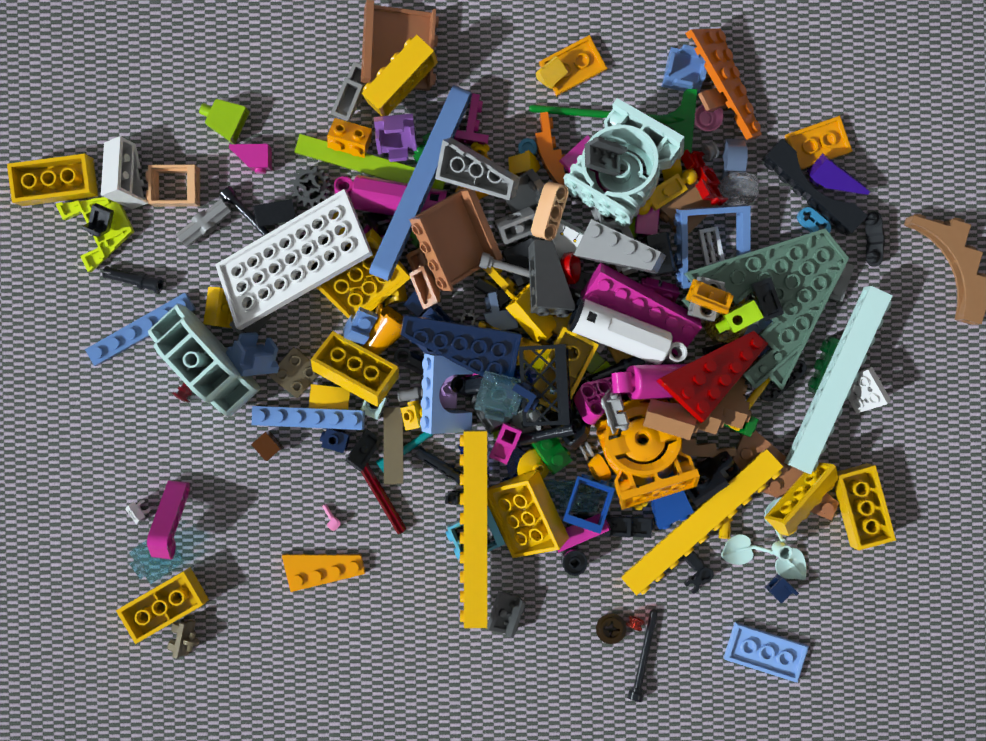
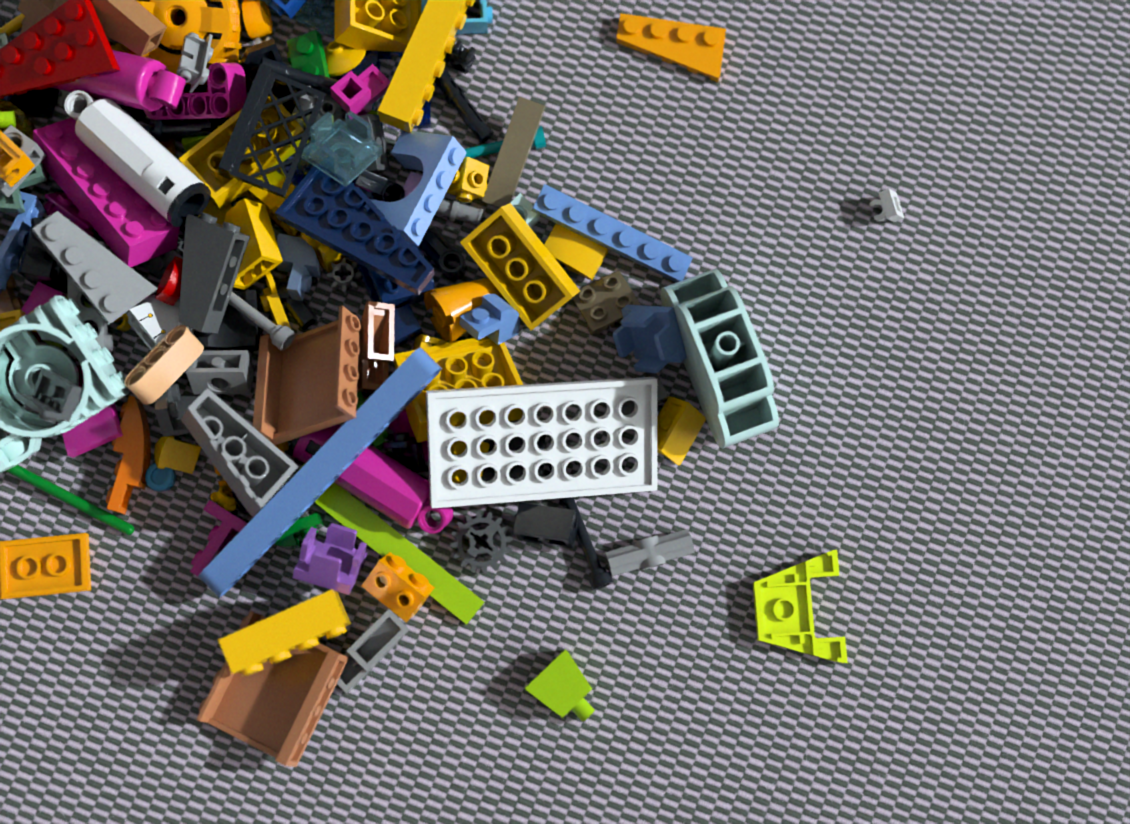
camera: 160 degrees left, 10 degrees down
(52, 180) = (838, 696): yellow brick -> none
(99, 220) = (792, 608): bracket -> none
(121, 174) = (737, 666): white wedge -> none
(133, 332) = (797, 445): medium blue plate -> none
(141, 626) = (897, 74): yellow brick -> none
(142, 280) = (767, 507): black pin -> none
(152, 567) = (886, 139): clear light blue panel -> none
(166, 520) = (846, 174): dark pink beam -> none
(183, 393) = (768, 334): dark red pin -> none
(185, 638) = (884, 21): dark tan hips -> none
(193, 185) = (705, 623): light nougat window -> none
(255, 156) = (543, 616): dark pink slope -> none
(267, 445) = (681, 220): reddish brown panel -> none
(334, 522) = (633, 92): bright pink hand -> none
(335, 440) = (589, 190): dark blue brick -> none
(363, 450) = (556, 162): black plate -> none
(383, 499) = (559, 108): dark red axle -> none
(525, 390) = (298, 128): dark blue bracket -> none
(551, 72) = (77, 563): yellow tile -> none

